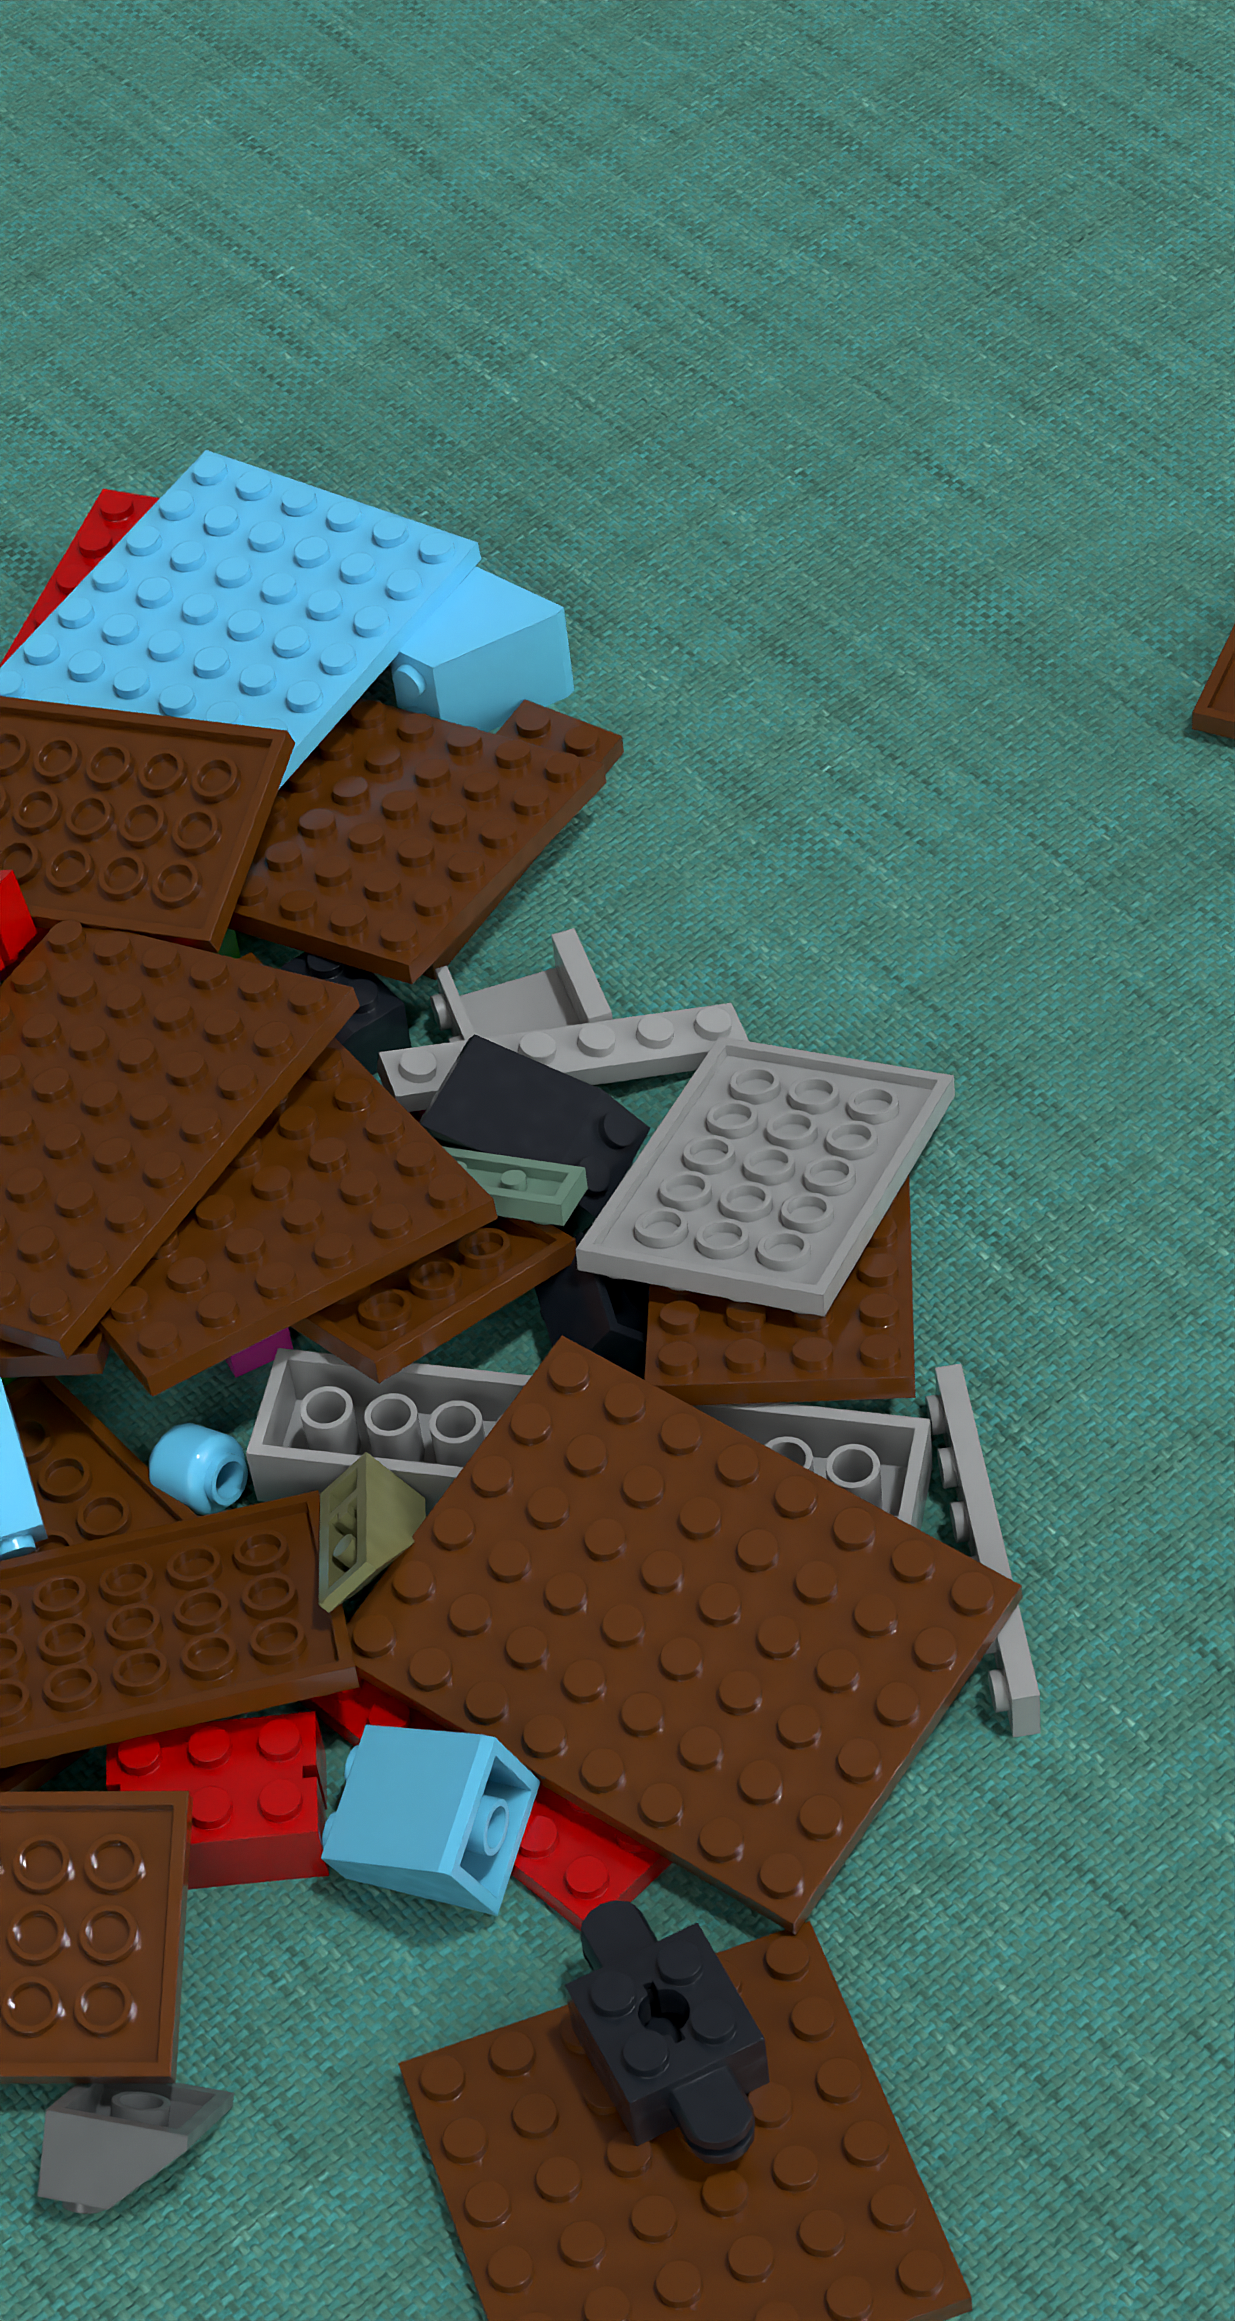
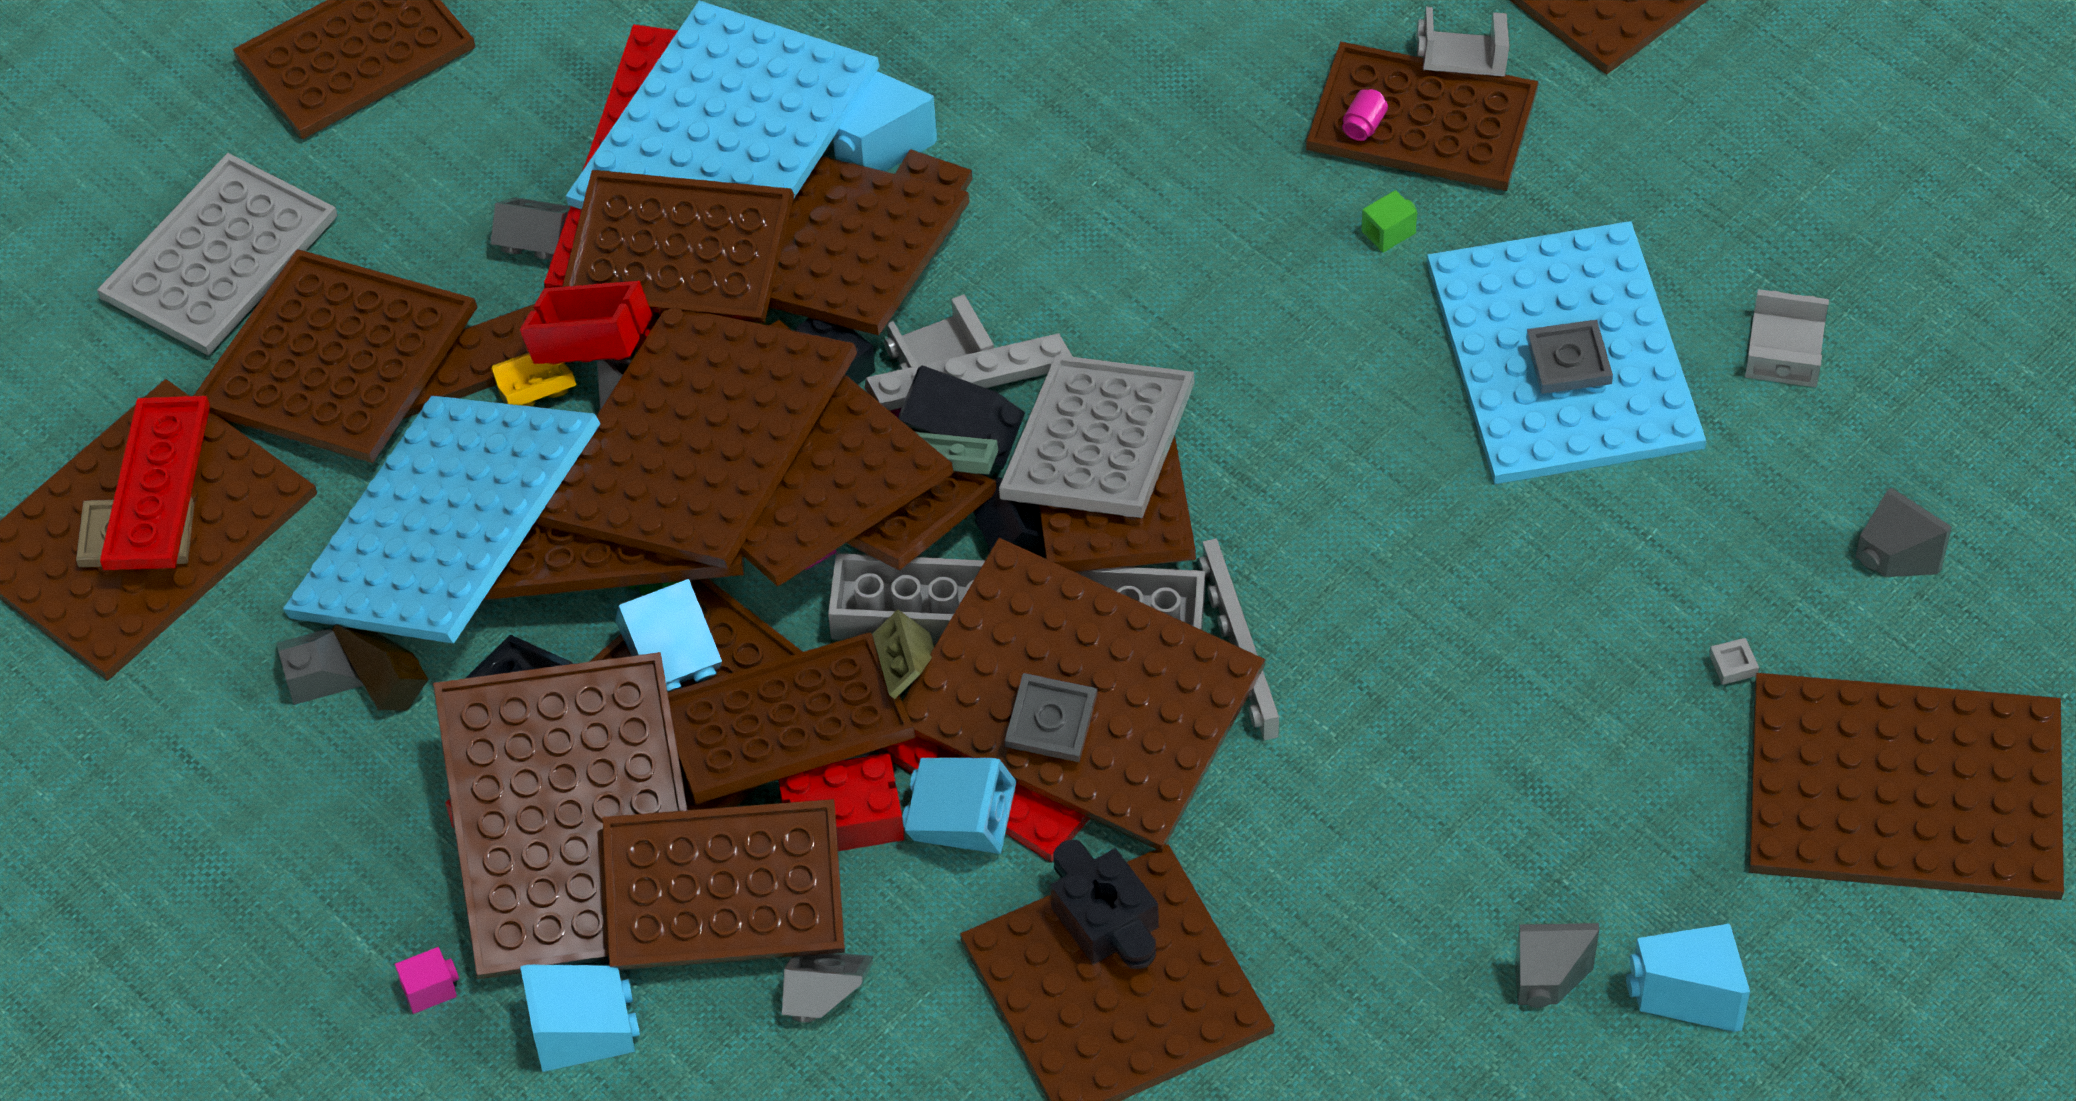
camera: 10 degrees left, 5 degrees up
(199, 1467) = (797, 623): medium azure head -> none
(610, 1667) = (1051, 717): none -> dark grey plate

